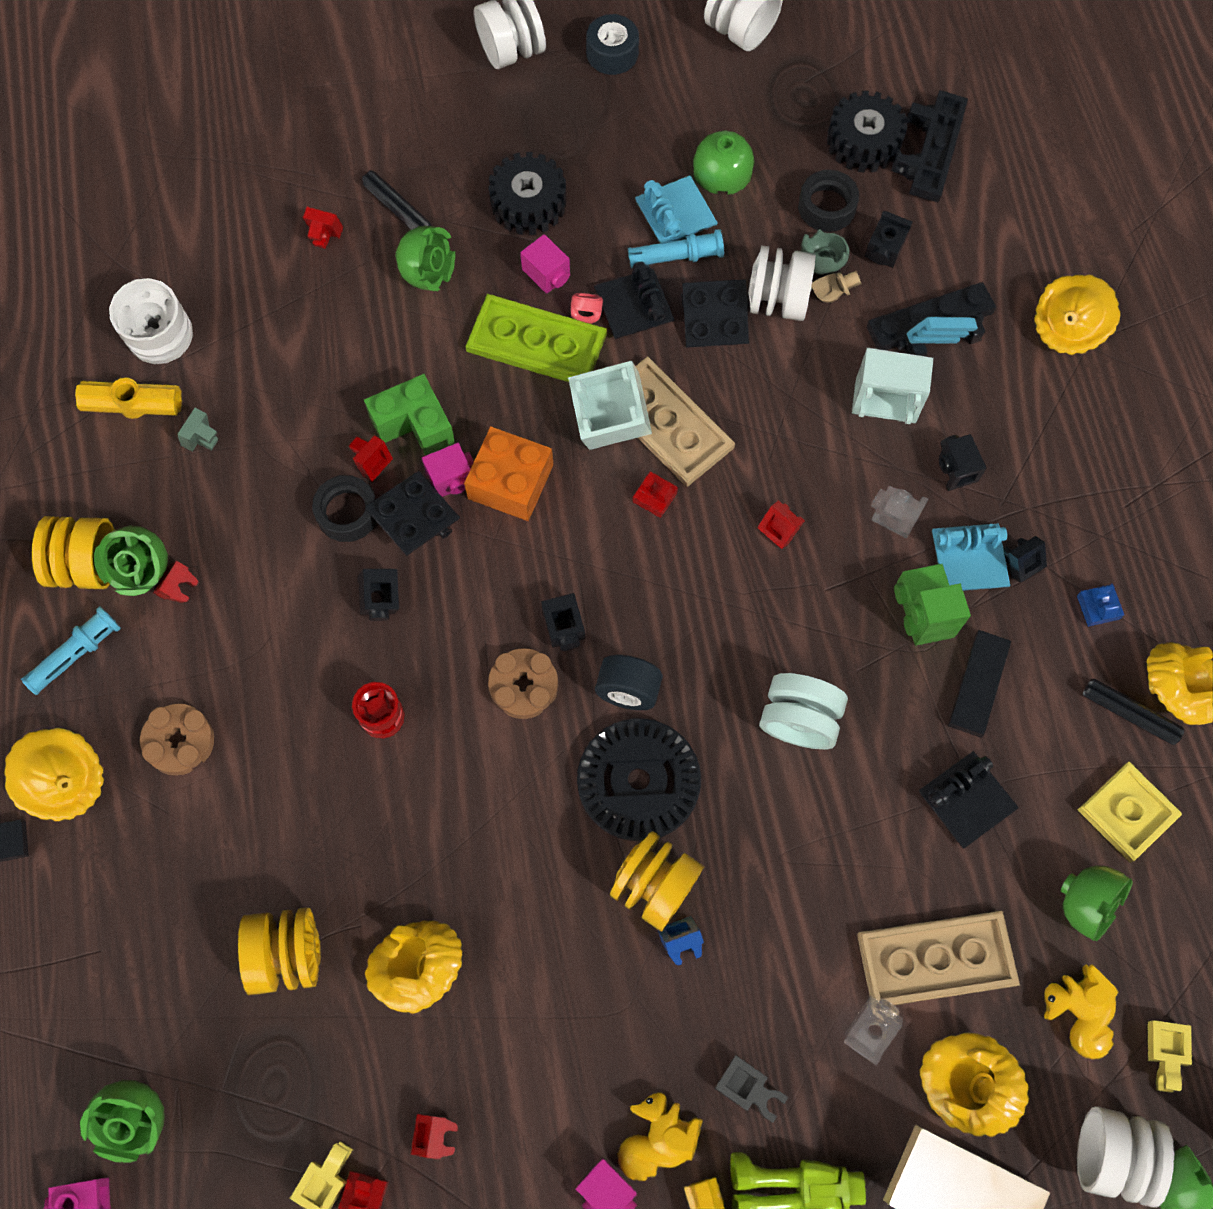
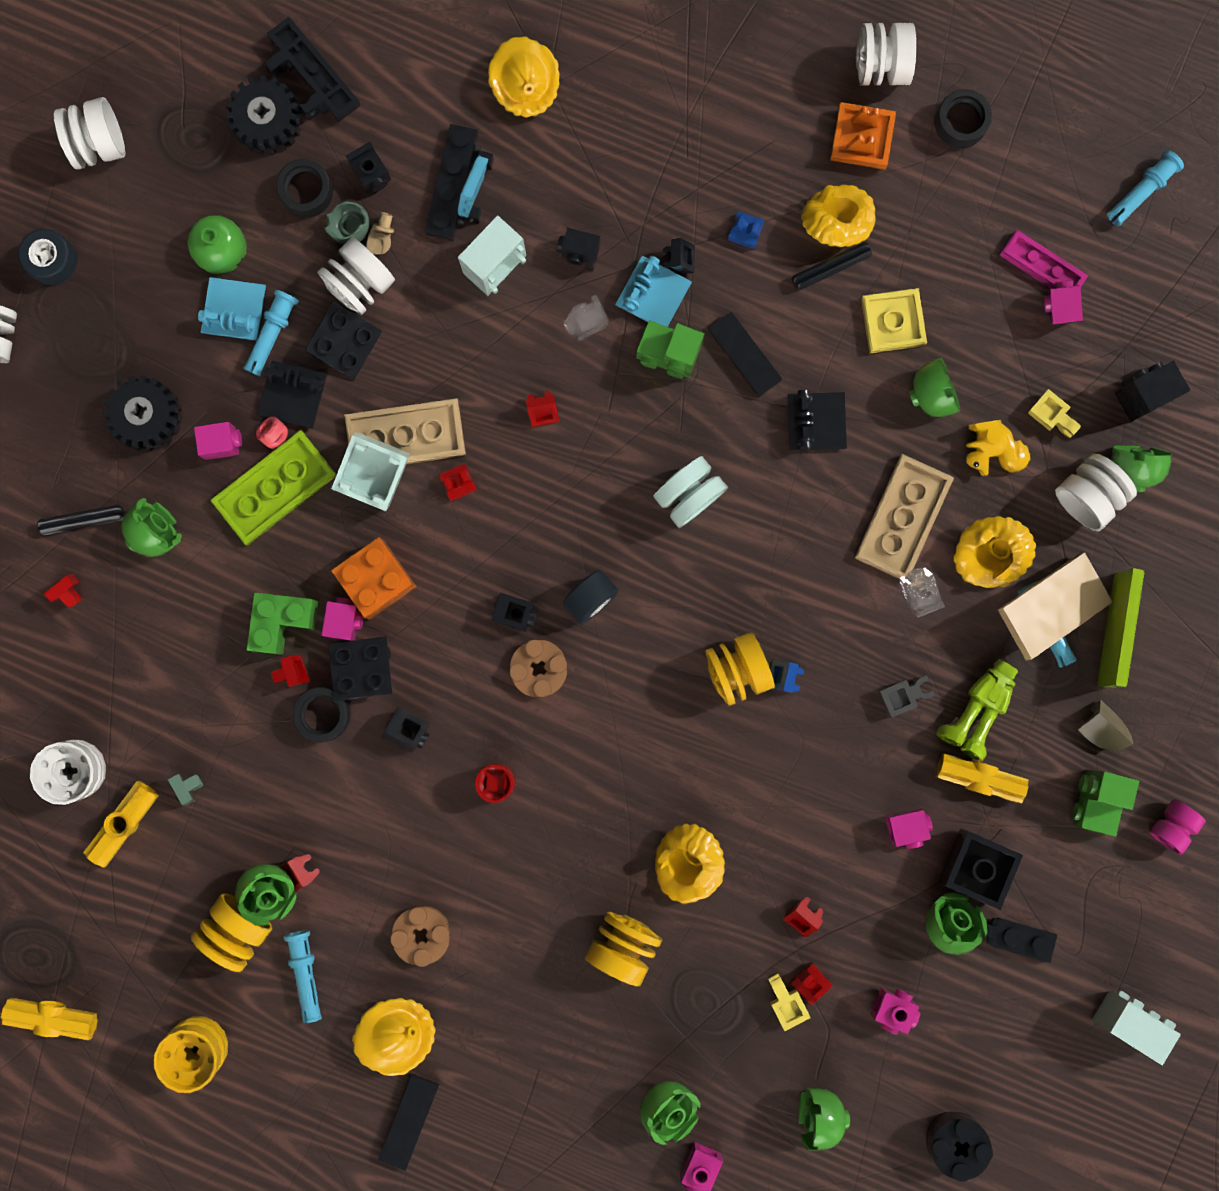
camera: 55 degrees left, 15 degrees up
(635, 746) = (685, 641): black piece -> none
(667, 1144) = (903, 768): yellow animal -> none

